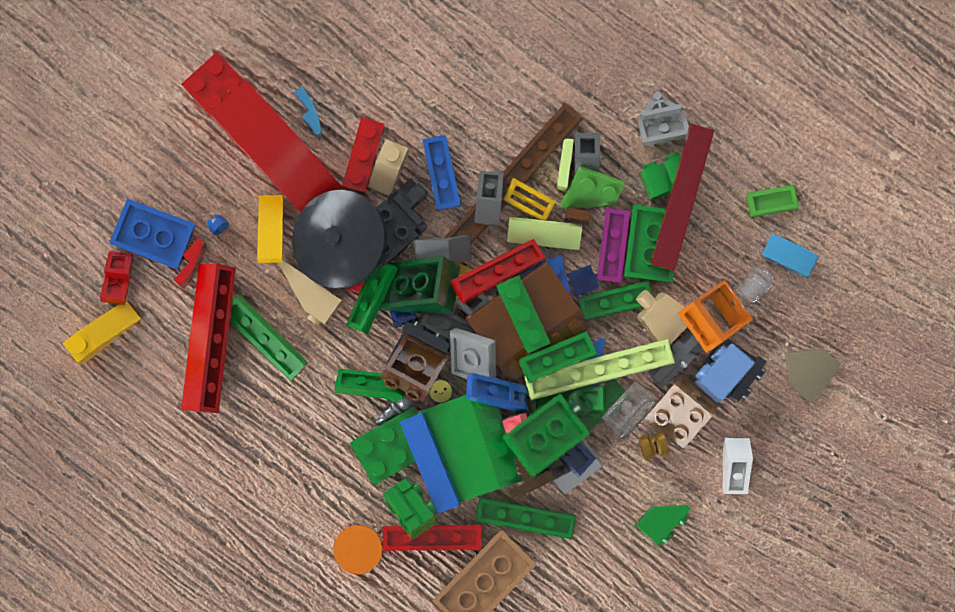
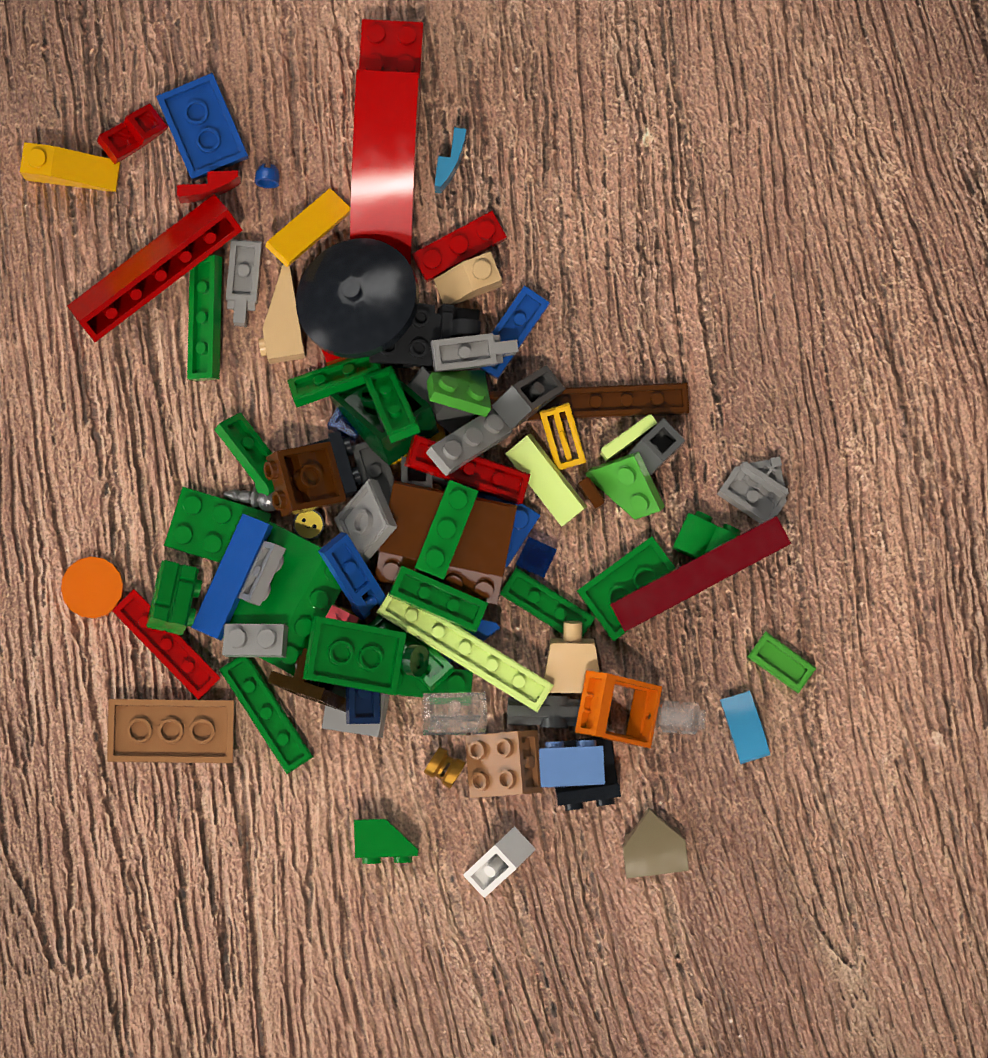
camera: 50 degrees right, 0 degrees up
(263, 294) = (243, 279): none -> light grey hinge
(420, 277) = (391, 404): none -> green tile
(432, 205) = (470, 352): none -> light grey hinge
(446, 443) = (258, 581): none -> light grey plate
(449, 231) = (460, 390): none -> bright green wing
(481, 484) = (255, 640): none -> light grey plate
(483, 254) = (468, 442): none -> light grey plate
(613, 245) = (595, 554): magenta plate -> none

